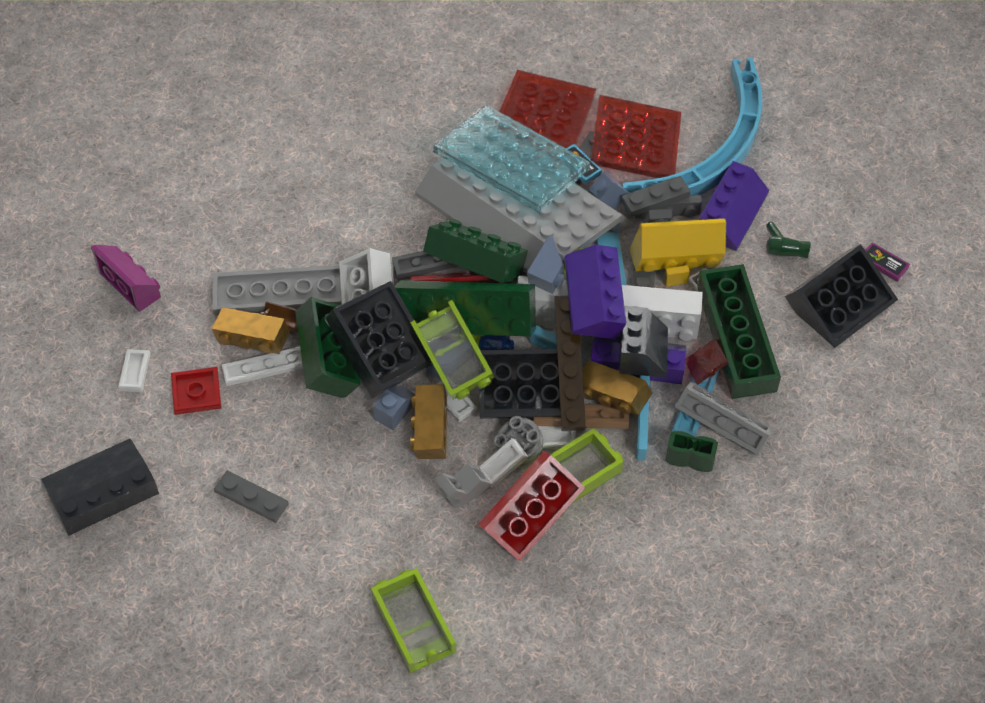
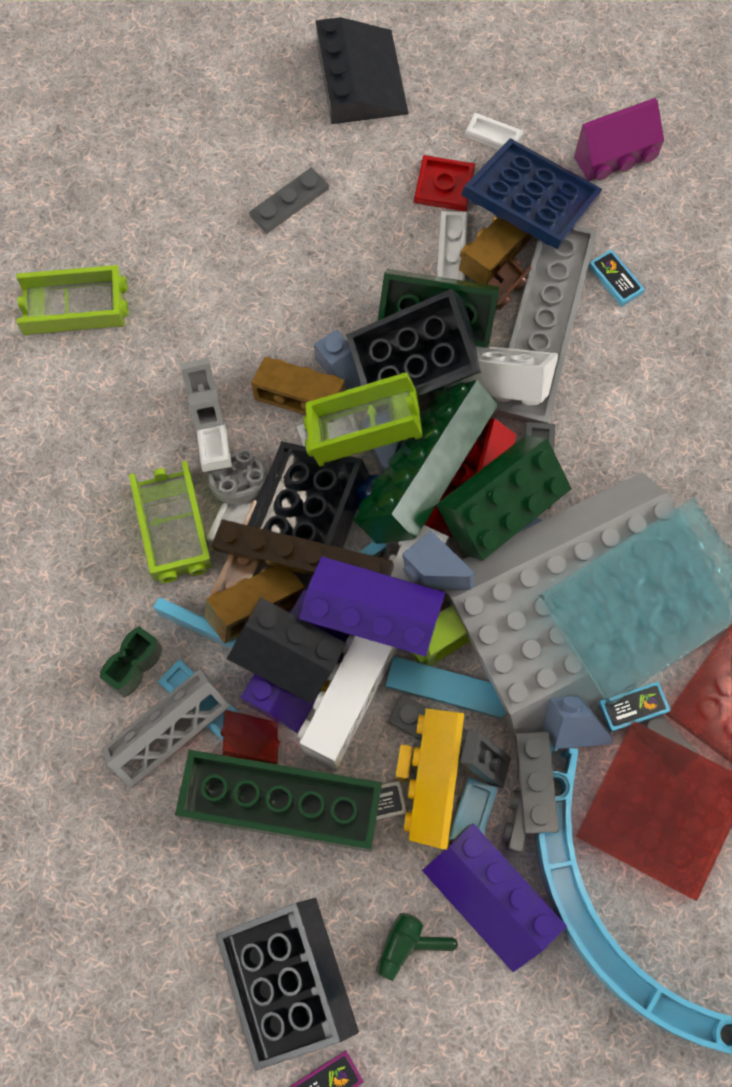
camera: 110 degrees right, 15 degrees up
(197, 316) = (532, 193): none -> dark blue plate
(248, 255) = (616, 278): none -> tile
(531, 505) = (136, 448): red slope -> none

